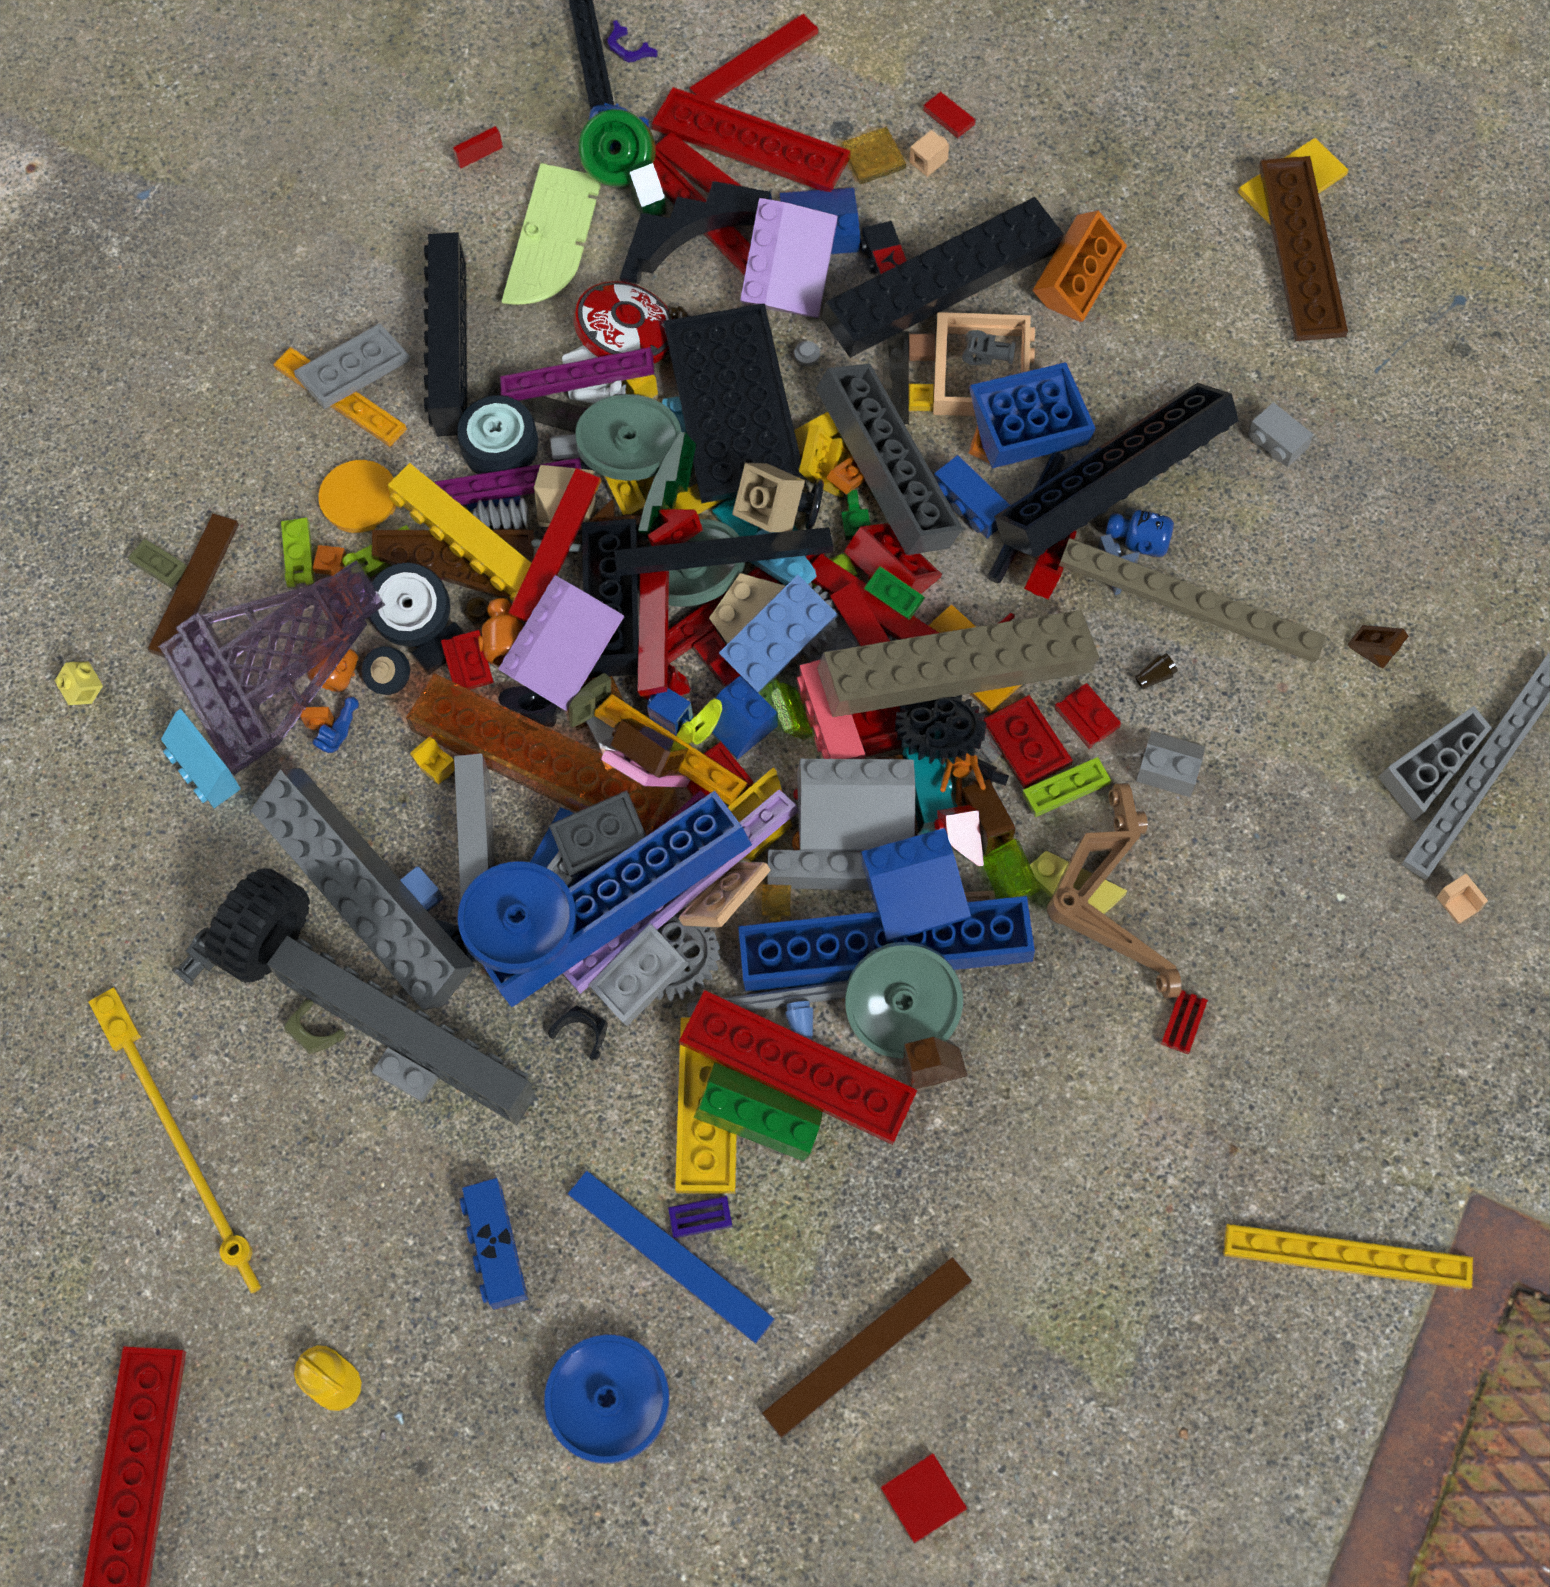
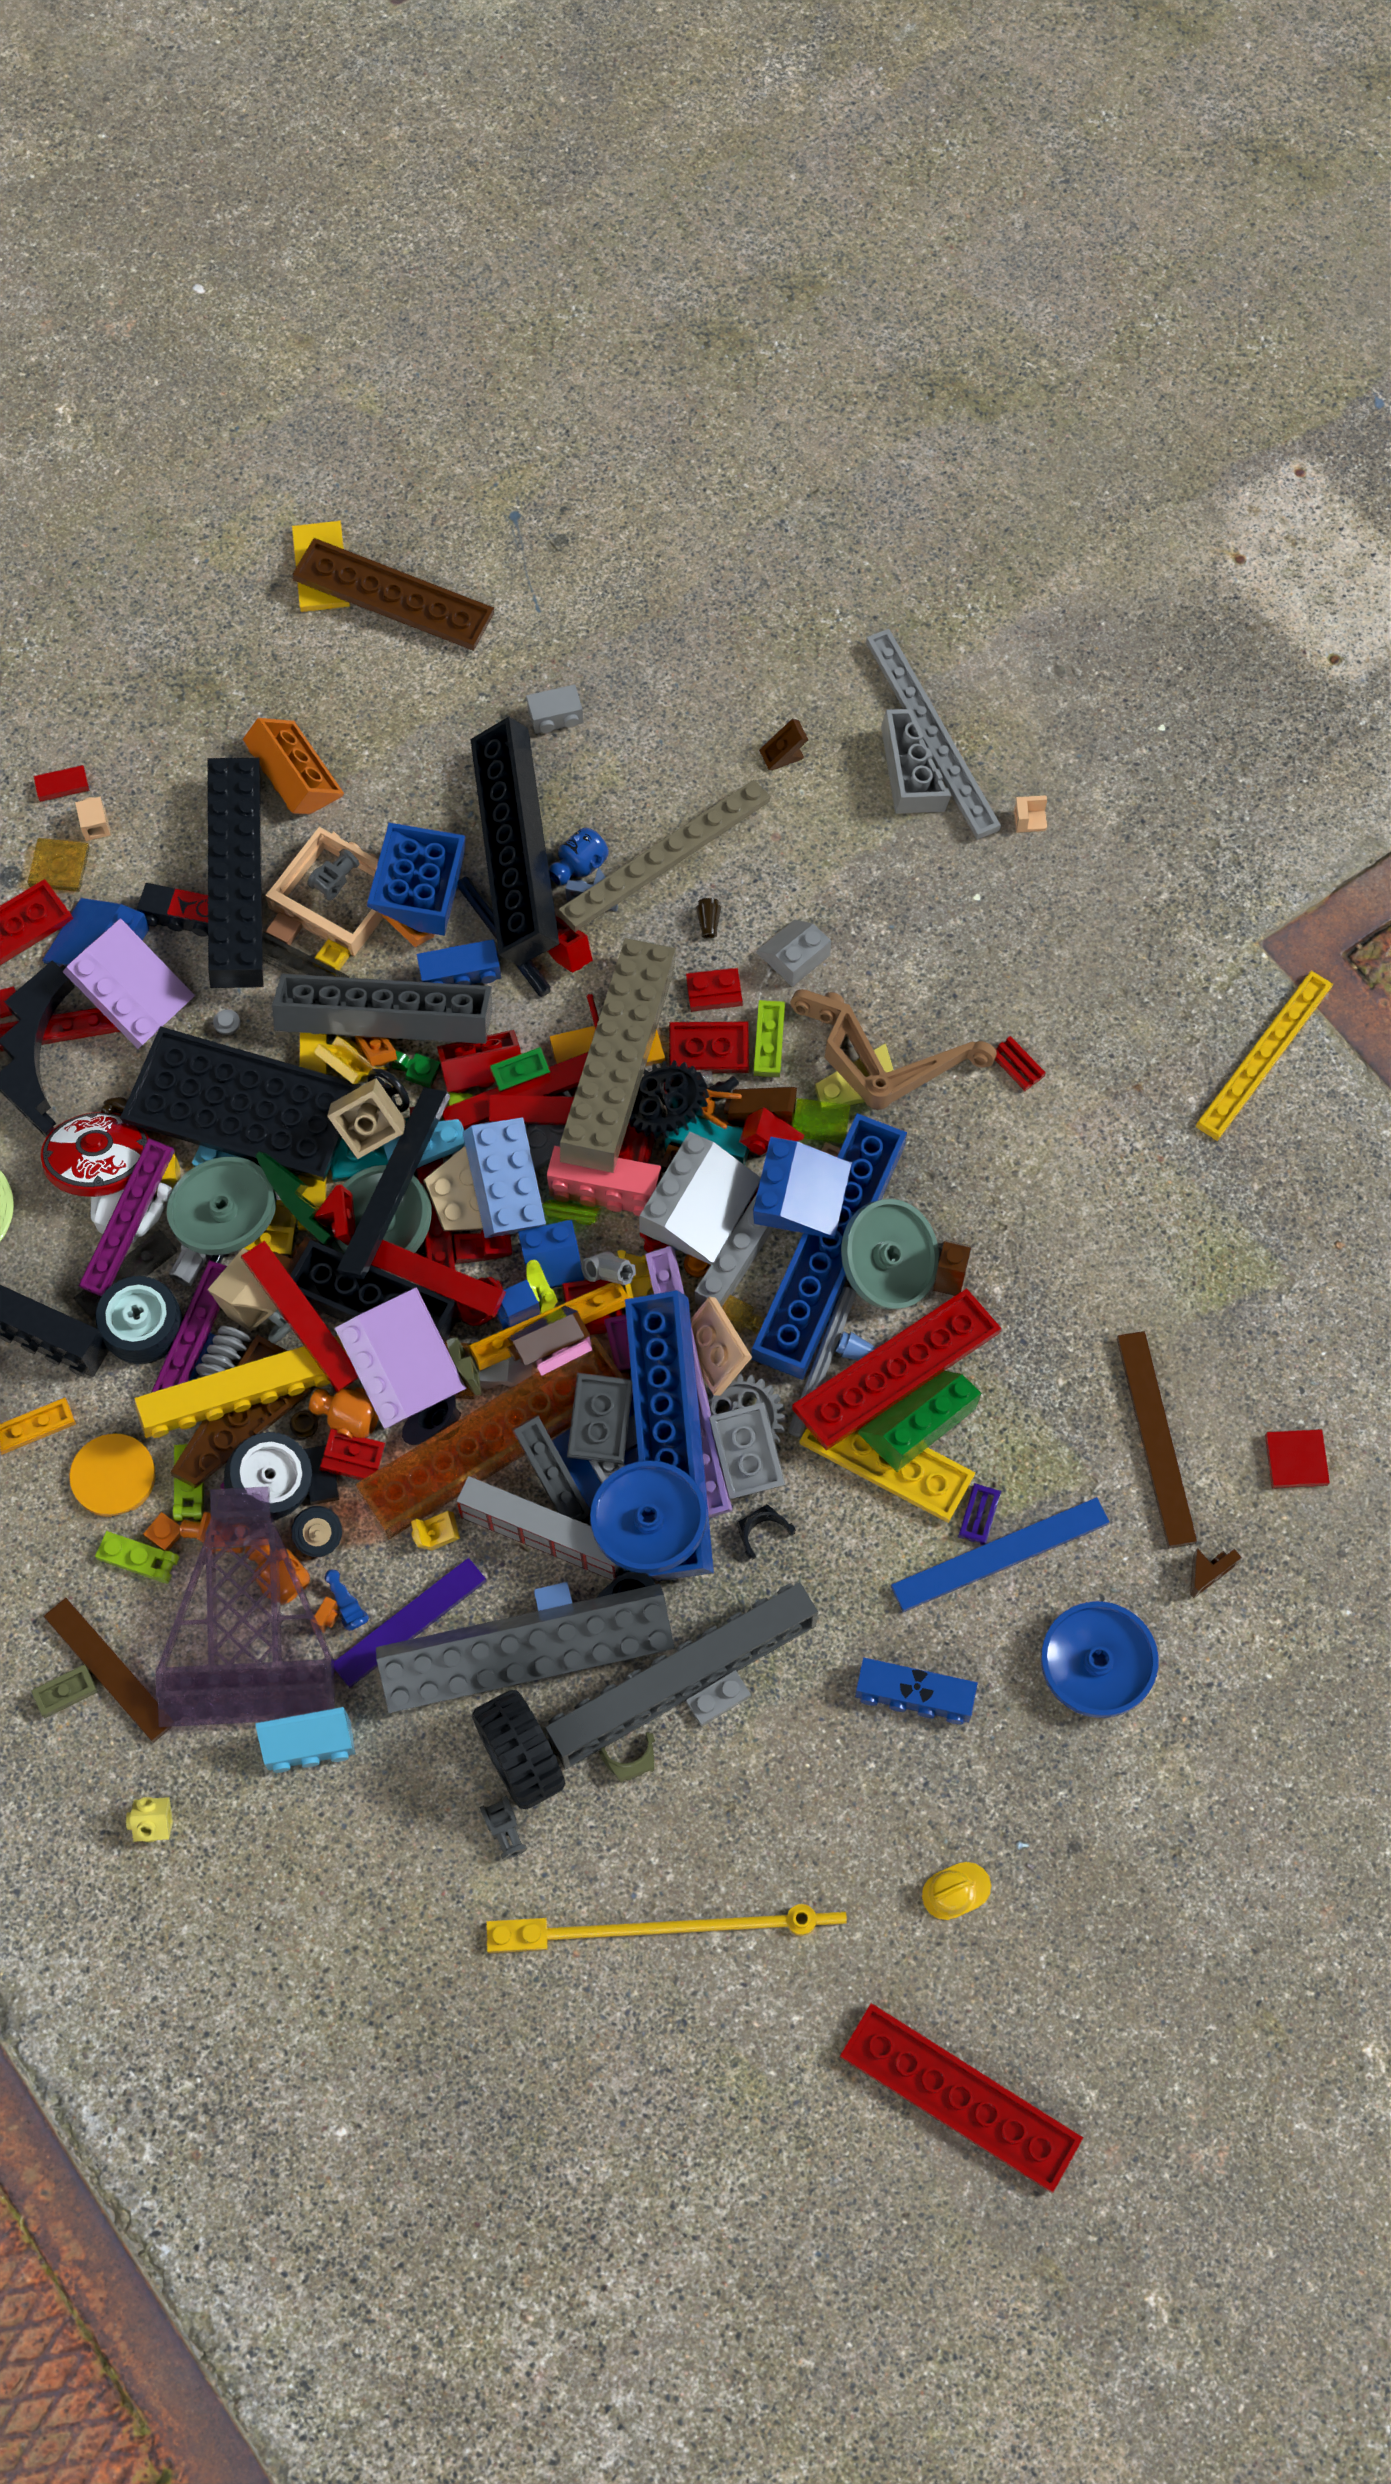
camera: 65 degrees left, 0 degrees up
(352, 788) = (410, 1620): none -> dark purple tile
(533, 816) = (551, 1469): none -> dark grey plate
(748, 1462) = (1206, 1574): none -> reddish brown slope
(751, 767) = (608, 1268): none -> light grey piece

